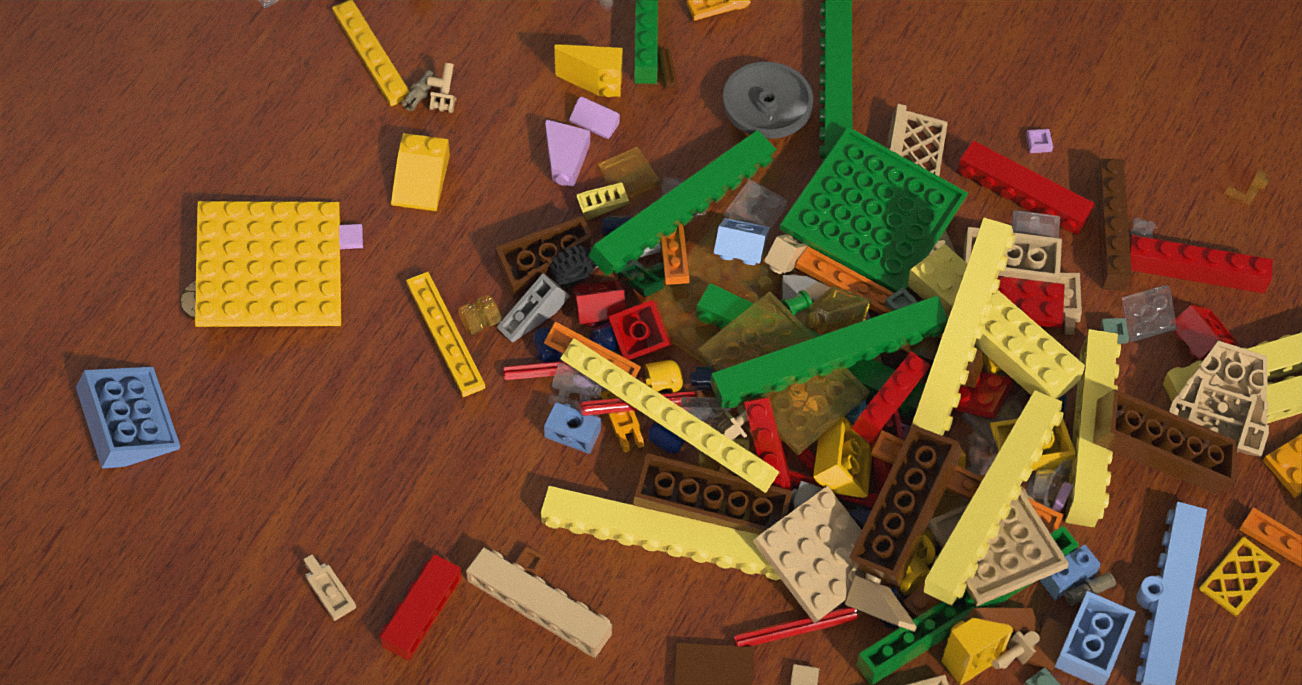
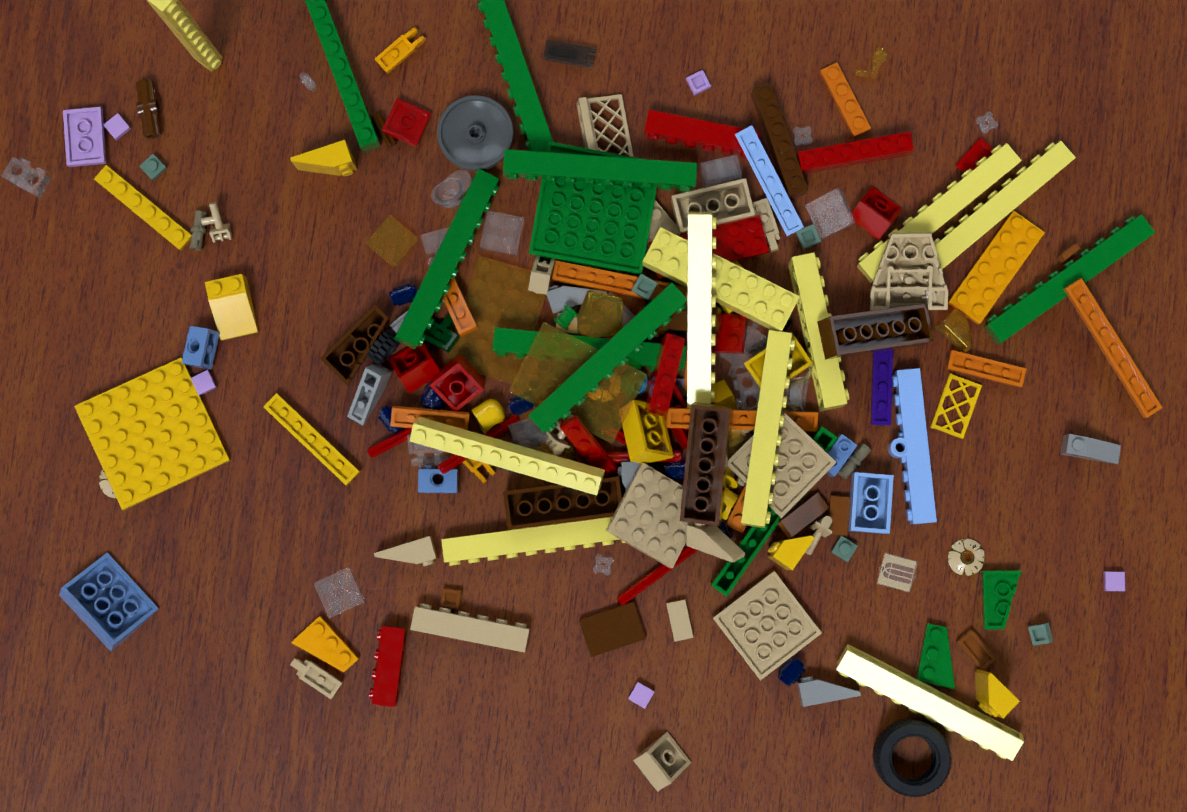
camera: 15 degrees left, 25 degrees up
(356, 557) = (326, 645): none -> light orange wing
(366, 197) = (200, 347): none -> medium blue brick
(400, 19) = (153, 167): none -> sand green plate
(400, 505) = (339, 592): none -> clear plate
(480, 314) = (330, 415): clear yellow wheel -> none
(507, 492) = (417, 552): none -> tan slope
(566, 151) = (336, 242): lavender slope -> none
(595, 118) = (345, 201): lavender slope -> none
(604, 207) = (378, 271): light yellow slope -> none
(695, 67) = (406, 122): none -> red tile
(717, 144) = (451, 190): none -> clear piece
(732, 585) = (607, 561): none -> clear plate
(741, 241) = (503, 273): light blue slope -> none
(893, 168) = (599, 169): none -> green brick
(903, 65) = (569, 53): none -> clear smoke hinge
(1061, 497) = (812, 396): lavender tile -> none
(1088, 254) = (769, 180): none -> light blue plate
(1151, 519) = (881, 388): none -> dark purple plate
(1204, 211) = (845, 100): none -> orange plate
(1263, 485) = (956, 330): none -> clear yellow slope

